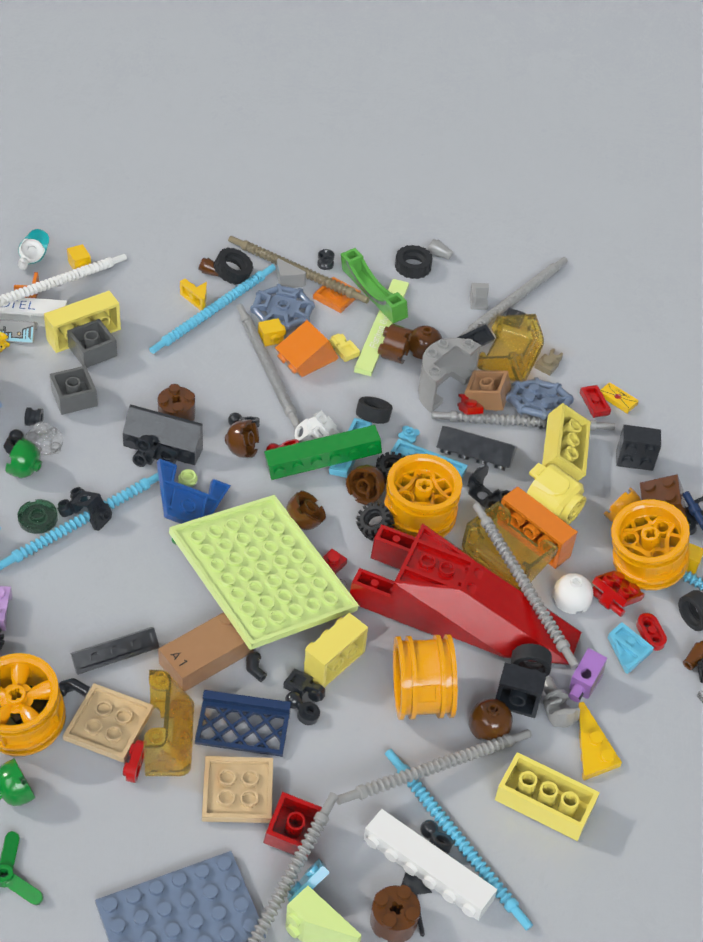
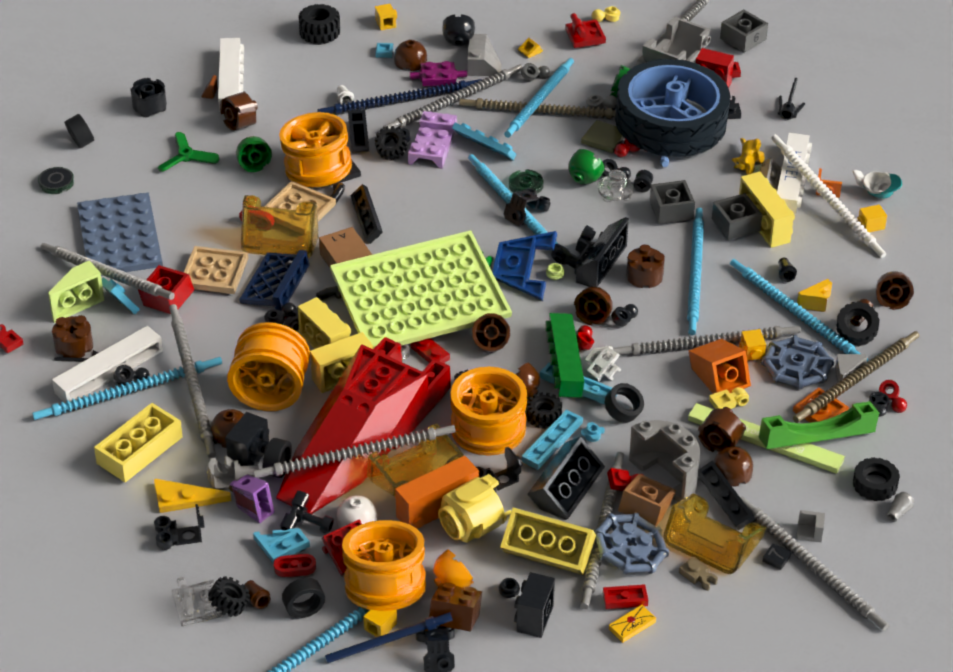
camera: 105 degrees right, 5 degrees down
(160, 313) = (787, 271): none -> black cone
(181, 245) = (894, 290): none -> reddish brown cylinder
(237, 375) = (695, 271): none -> medium azure hose
(309, 252) = (898, 404): none -> red plate
(381, 622) = (332, 360): none -> light yellow brick
(591, 633) = (299, 514): none -> black bar
(614, 475) = (509, 588): none -> black plate
(653, 741) = (169, 532): none -> black piece

